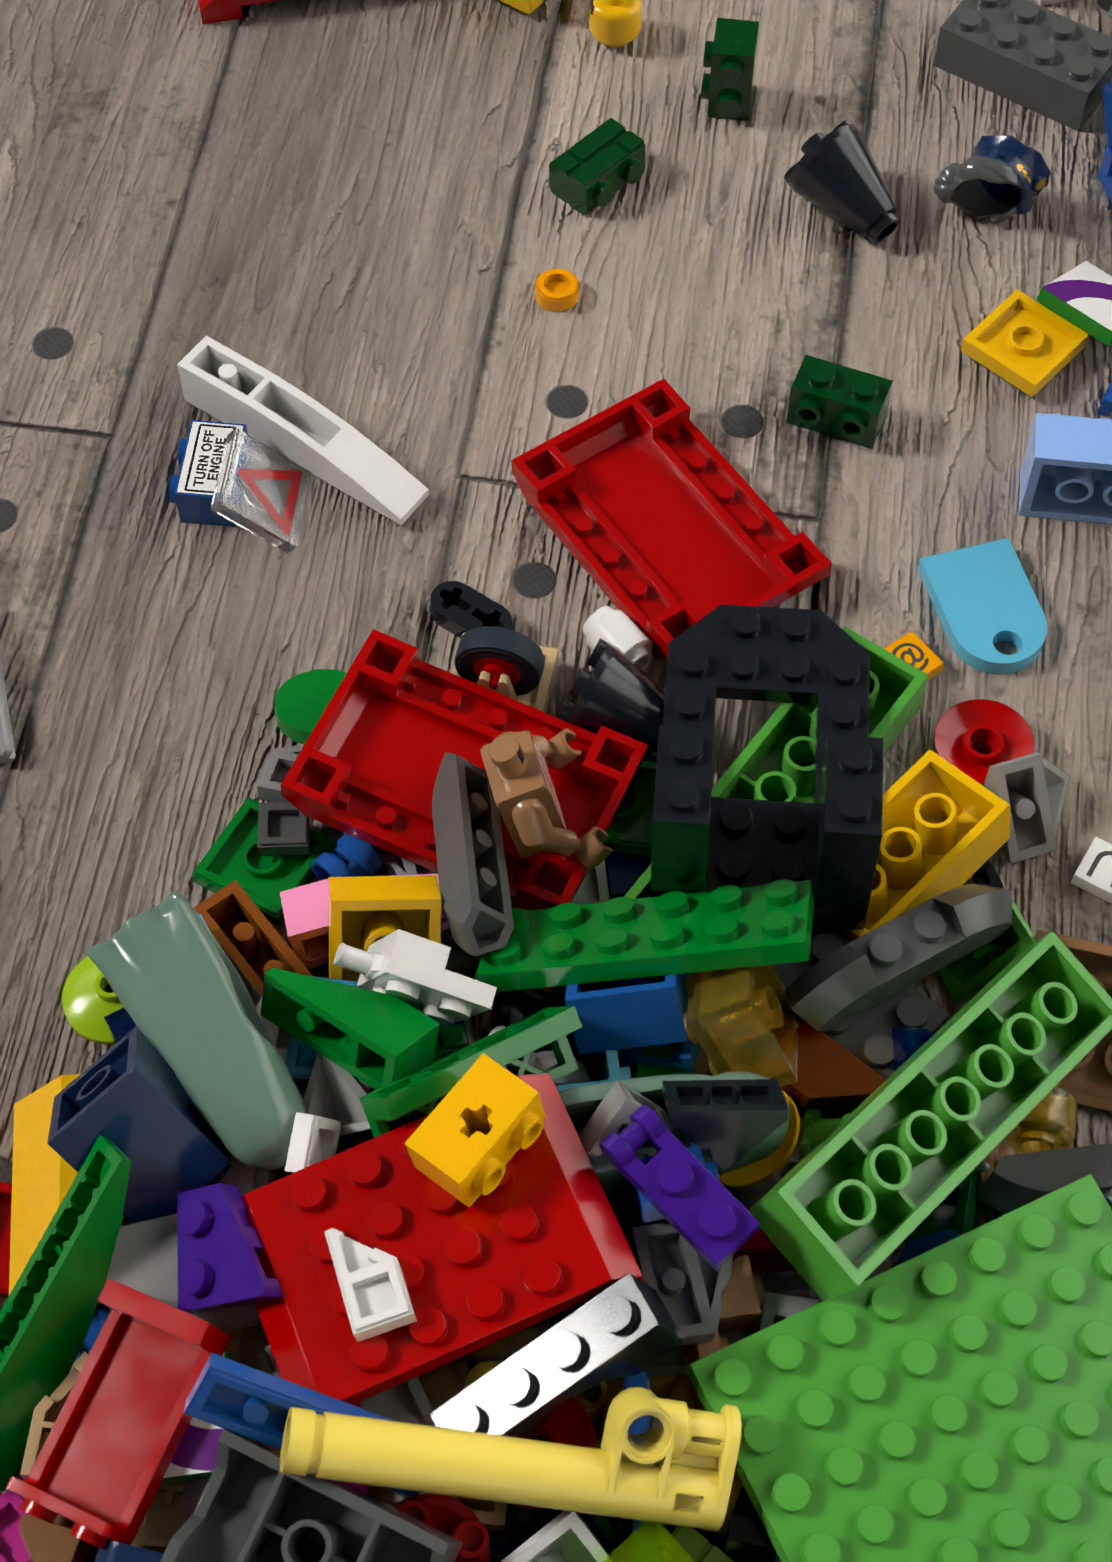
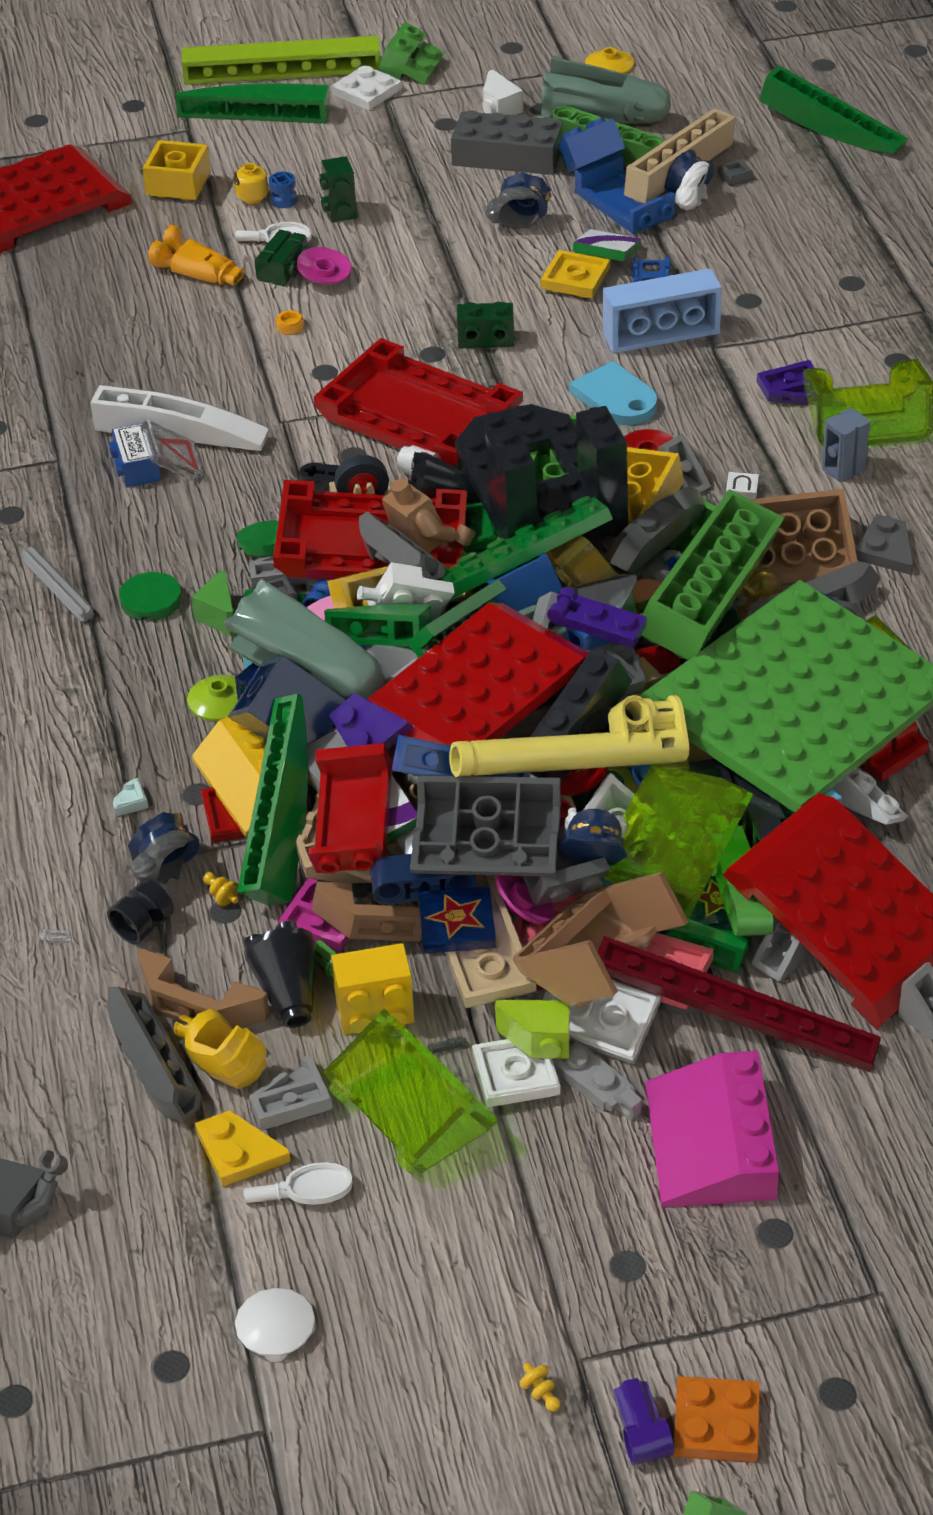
camera: 20 degrees left, 15 degrees down
(108, 753) = (150, 595): none -> green tile
(189, 811) = (213, 603): none -> bright green slope
(311, 1141) = (387, 667): white tile -> none
(370, 1286) = (462, 698): white tile -> none
(469, 127) = (193, 259): none -> light orange piece
(477, 1131) = (483, 618): yellow brick -> none
(632, 114) = (267, 234): none -> white piece
(652, 191) = (324, 265): none -> dark pink dish
(658, 37) = (283, 189): none -> blue wheel
(845, 182) = (434, 226): black cone -> none

